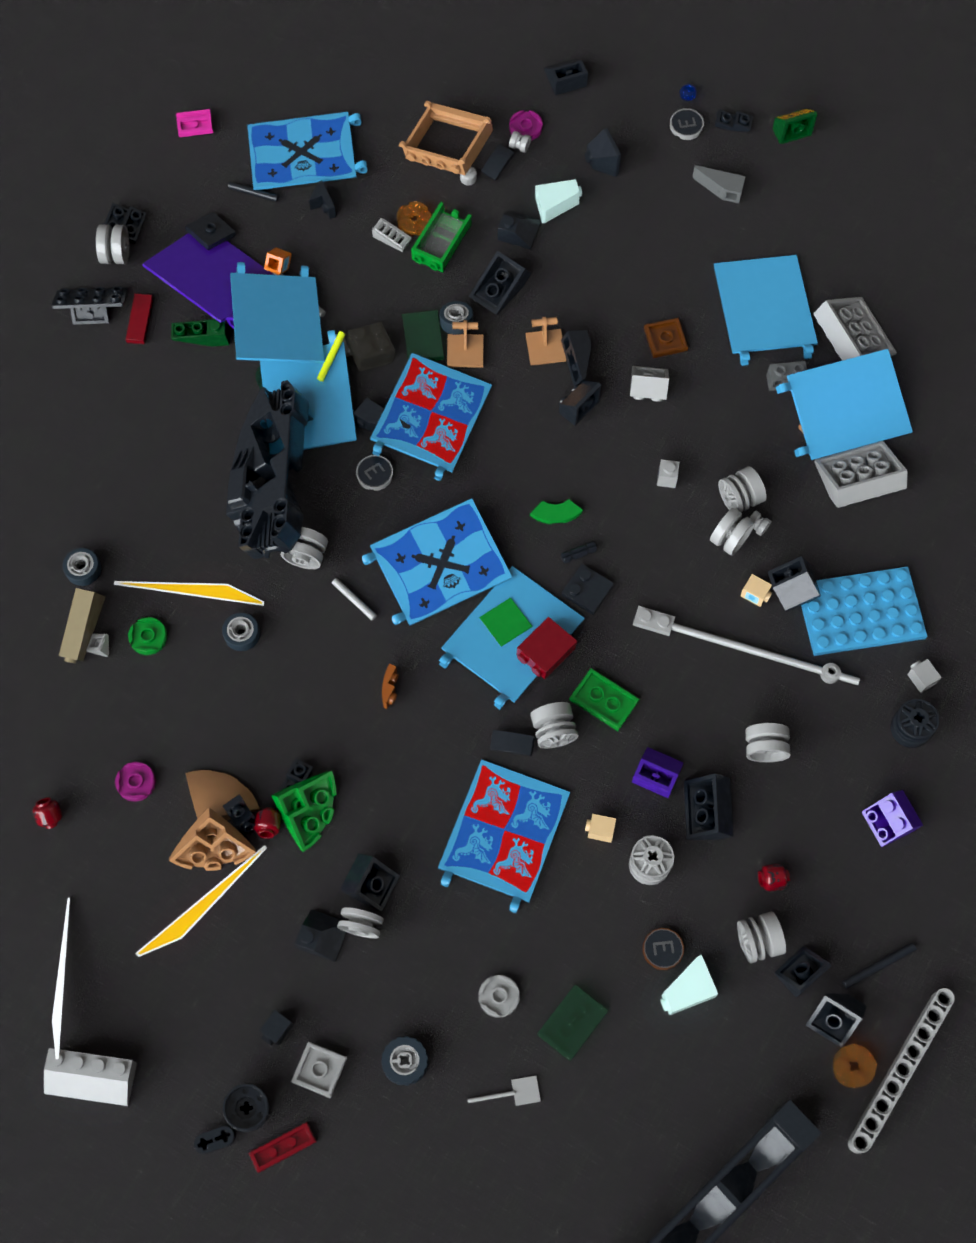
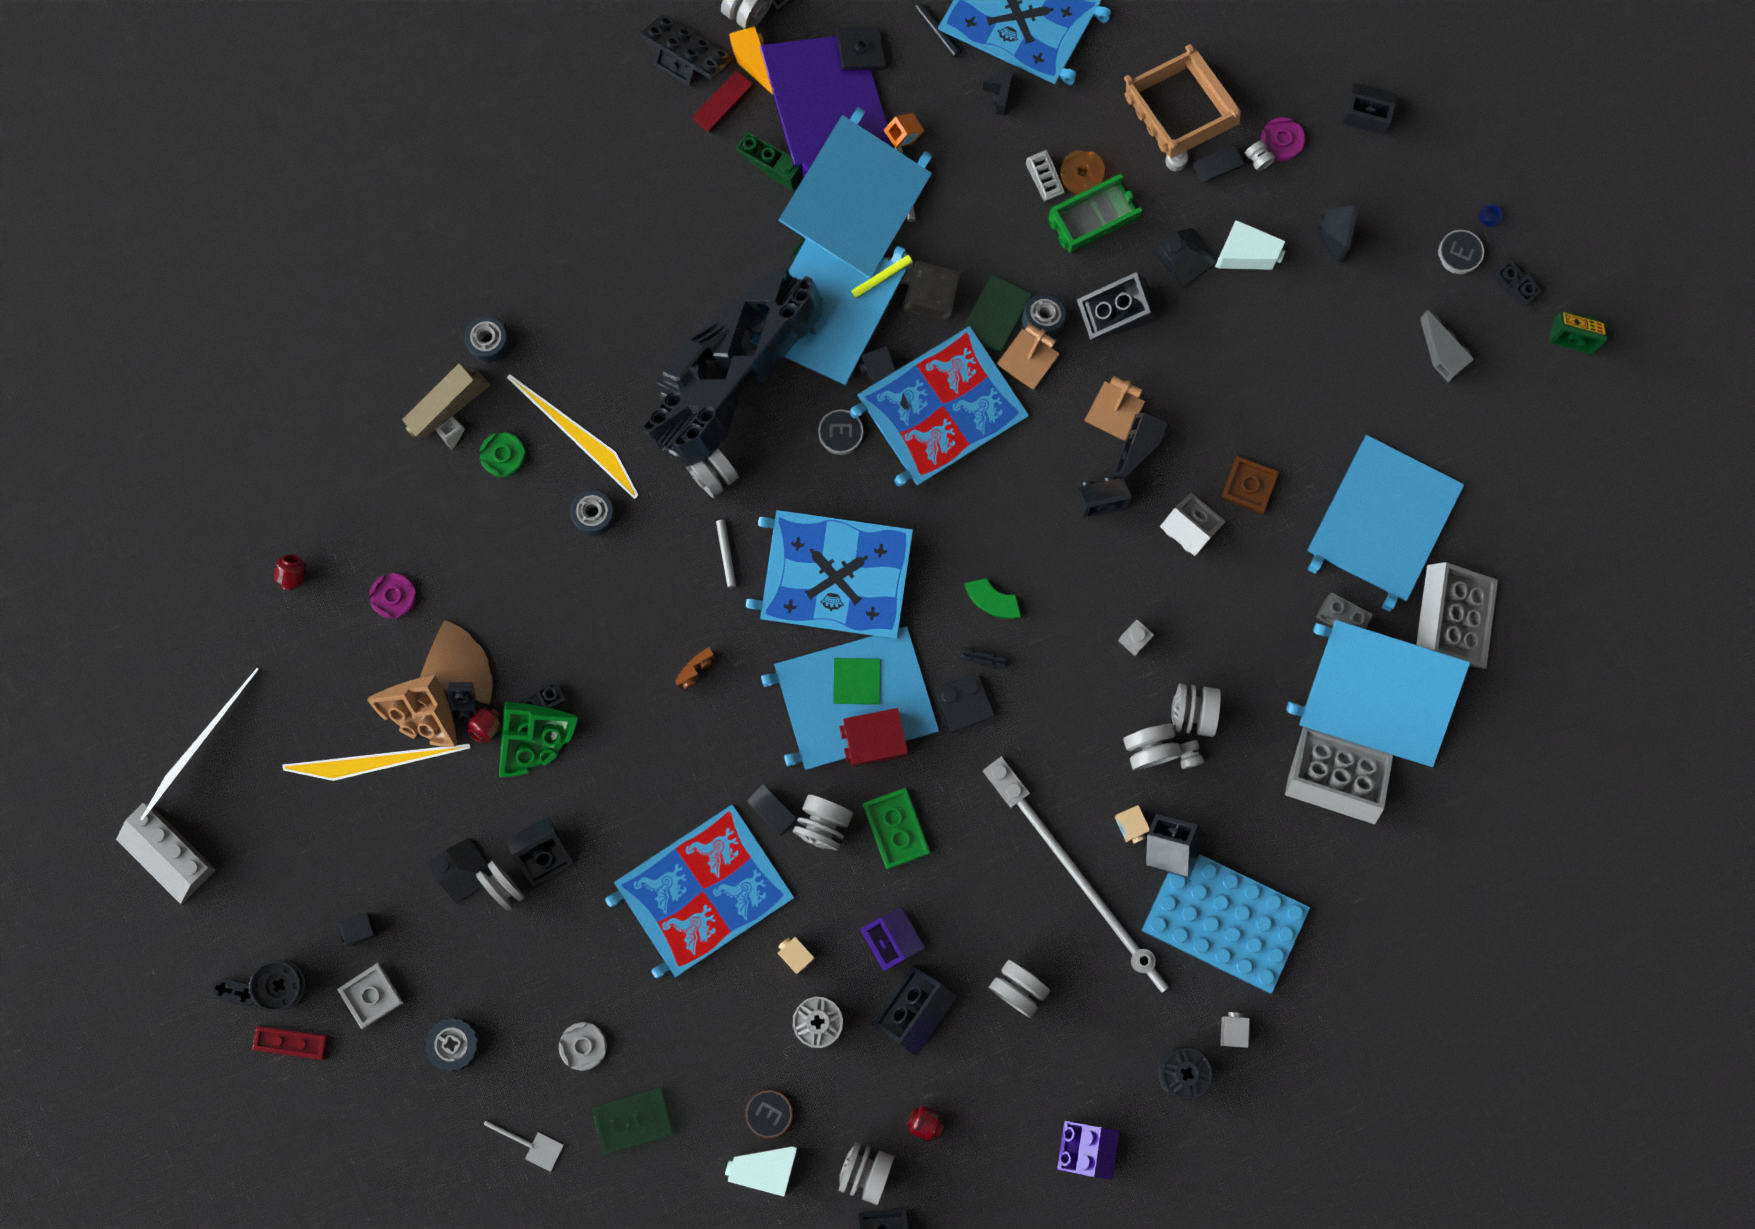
camera: 35 degrees right, 10 degrees up
(138, 278) = (748, 54): none -> light orange slope

